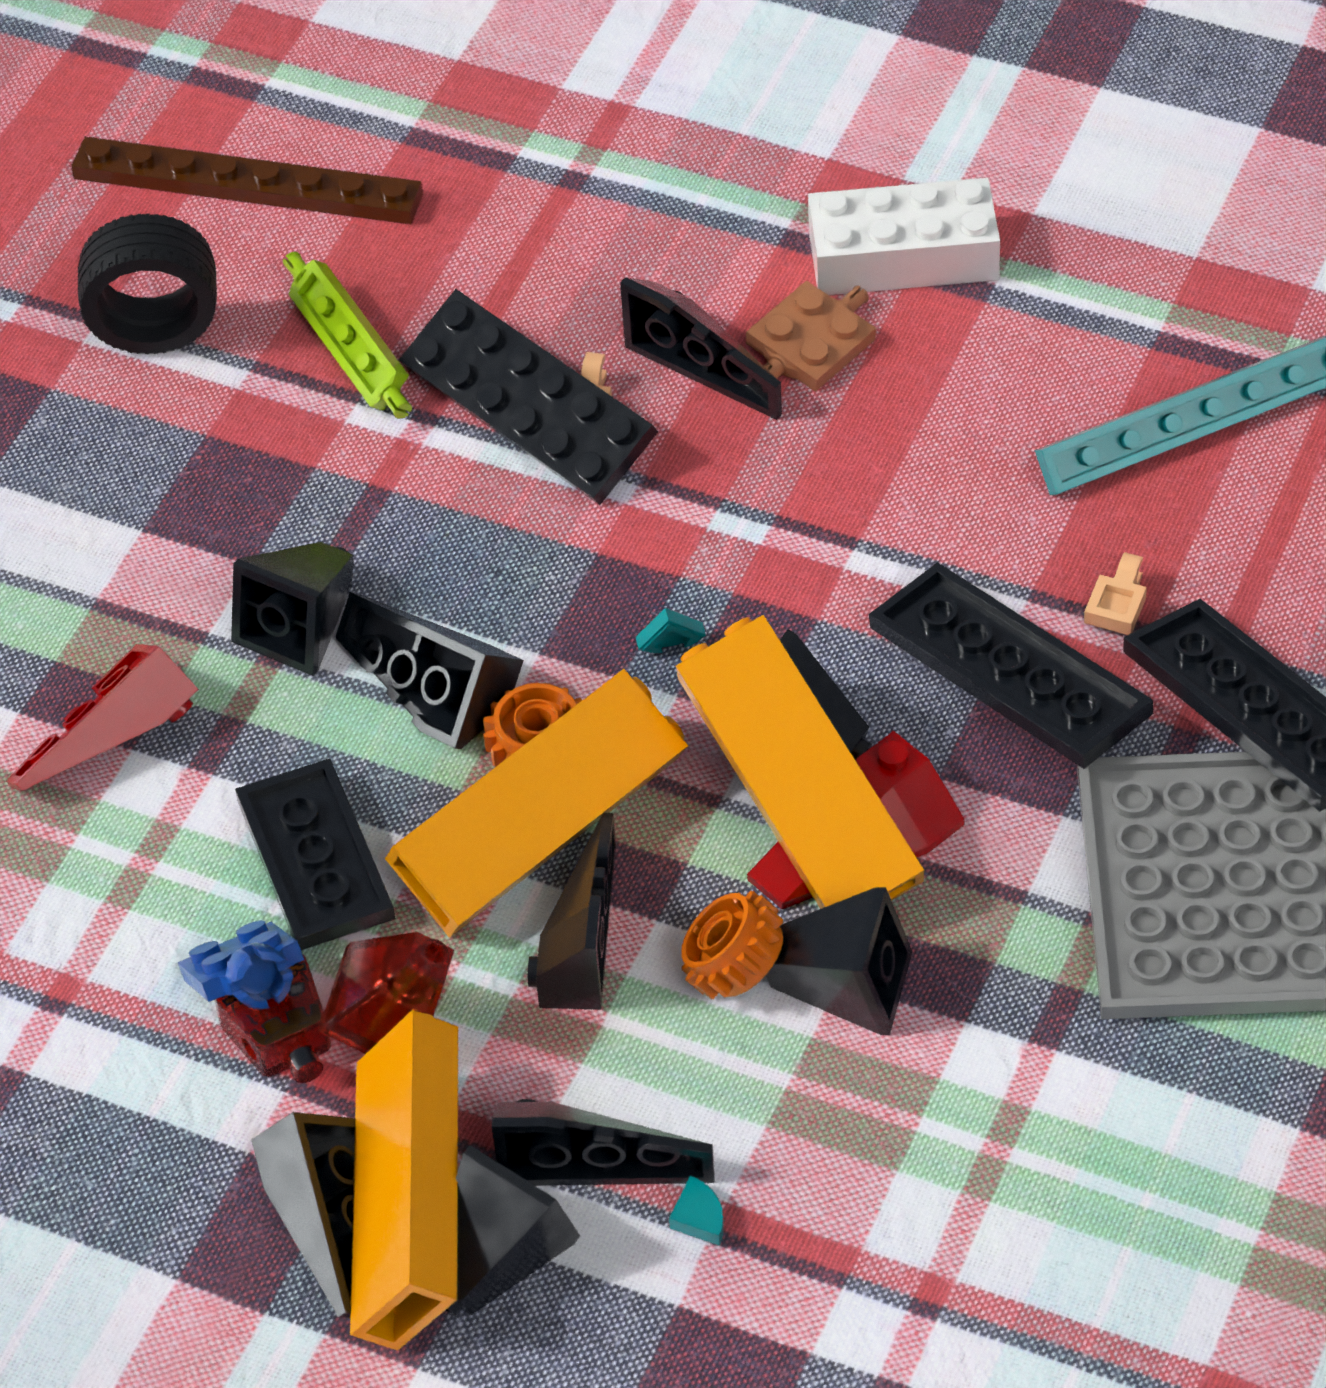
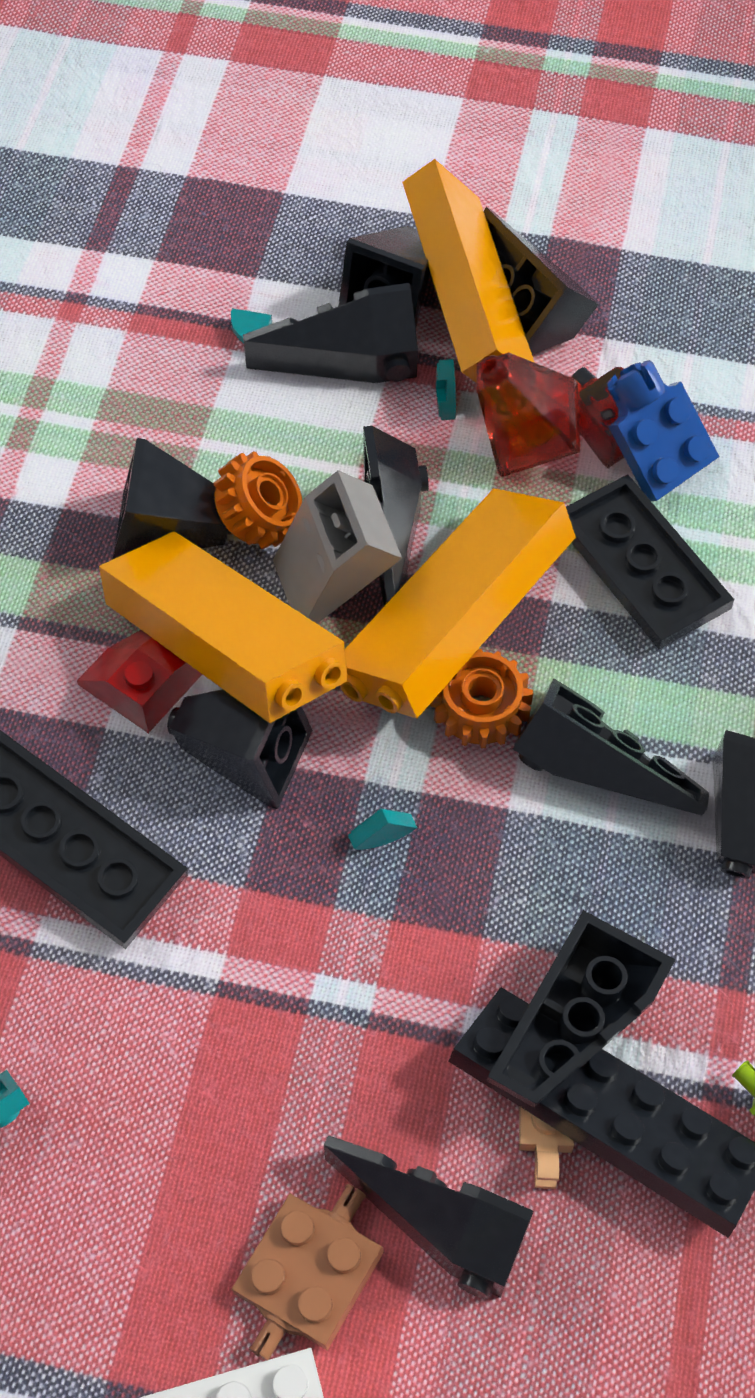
camera: 165 degrees right, 10 degrees up
(473, 1087) = (446, 389): none -> teal tile
(524, 454) = (582, 1004): none -> black wedge
(654, 842) = (334, 546): none -> light grey slope

